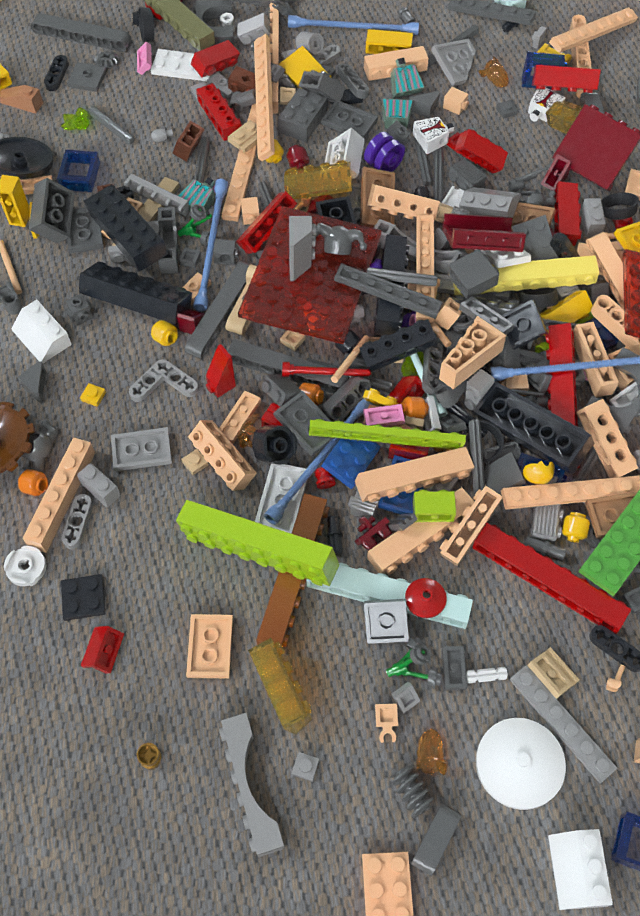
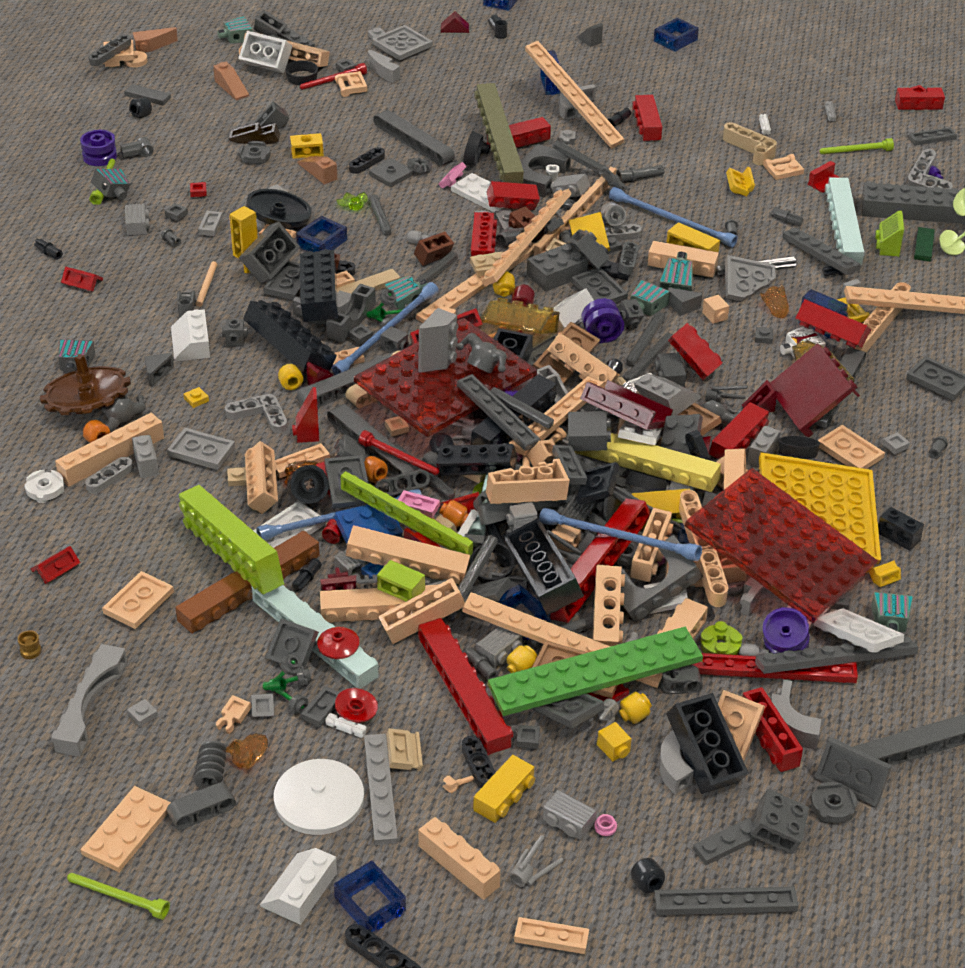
camera: 30 degrees right, 20 degrees down
(83, 597) = (70, 526): black plate -> none
(157, 194) = (367, 272): light grey hinge -> none
(280, 685) = (164, 640): clear yellow slope -> none
(348, 361) = (416, 455): light nougat bar -> none
(374, 397) = (424, 487): yellow plate -> none
(432, 133) = (663, 322): white torso -> none
(488, 645) = (356, 705): none -> red dish
(539, 473) = (515, 597): yellow hair -> none

